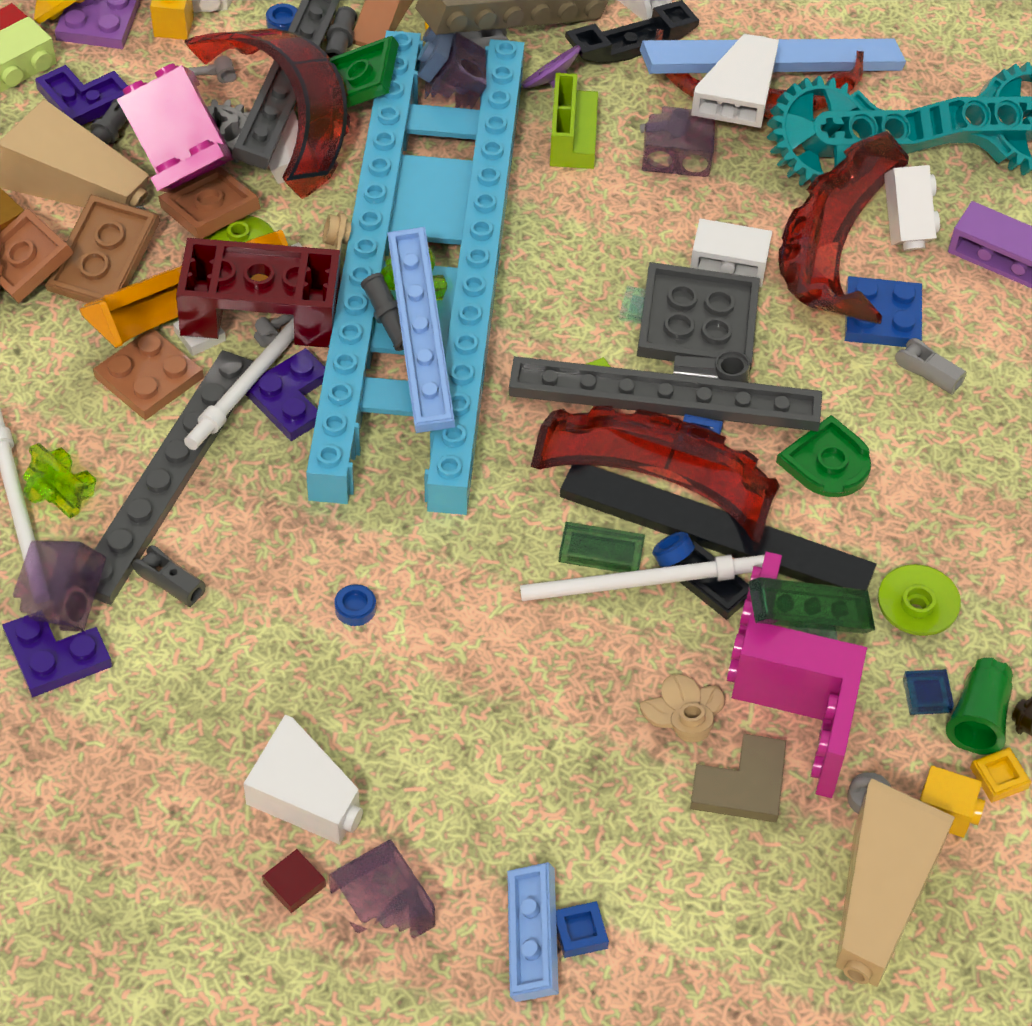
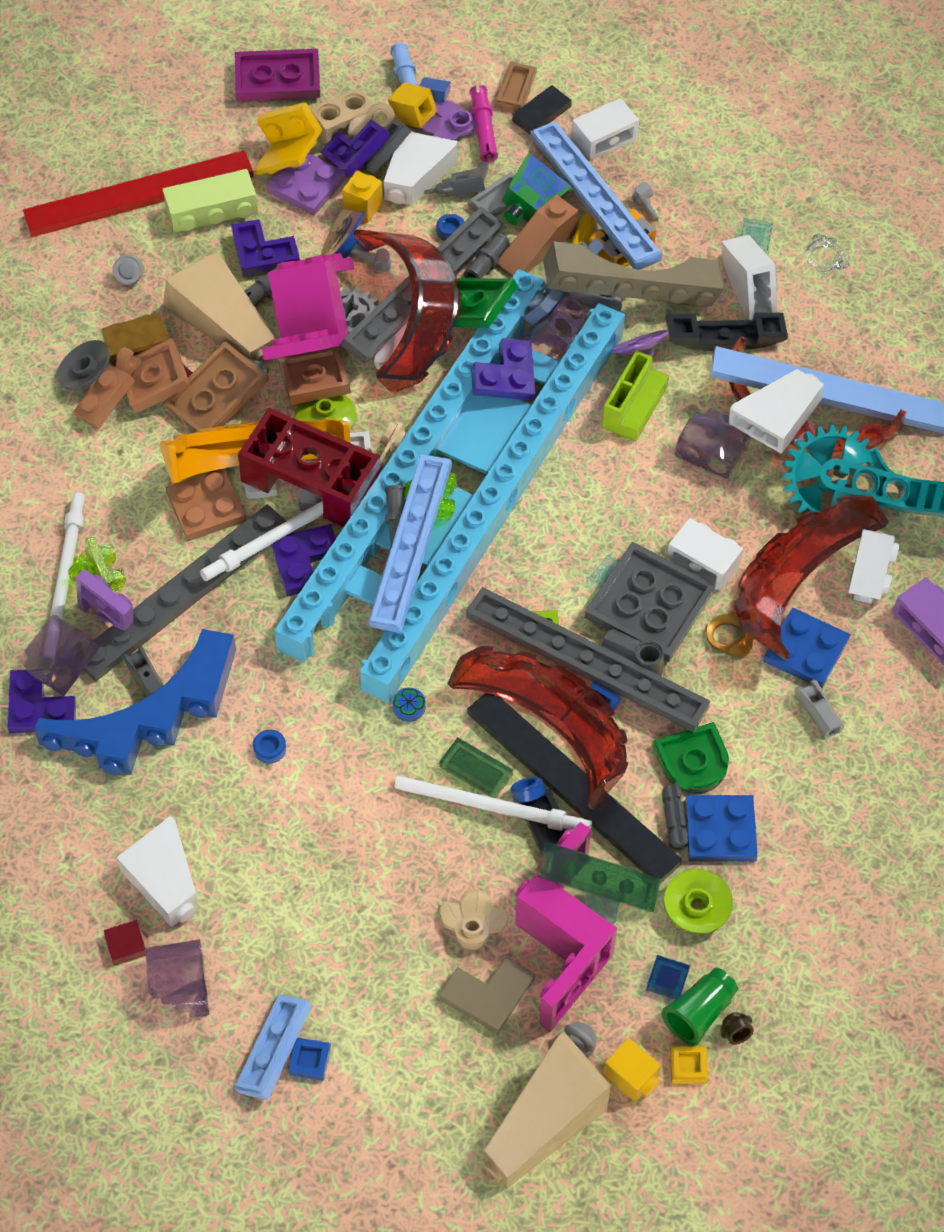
camera: 25 degrees right, 5 degrees up
(86, 506) = (95, 593): none -> medium lavender wing
(170, 47) = (341, 235): none -> shield
(205, 620) = (157, 718): none -> blue arch
(433, 135) = (511, 377): none -> dark purple plate
(491, 507) = (409, 704): none -> blue tile
(814, 335) = (740, 647): none -> pearl gold piece
(843, 524) = (674, 816): none -> dark grey axle
(897, 519) = (721, 828): none -> blue plate

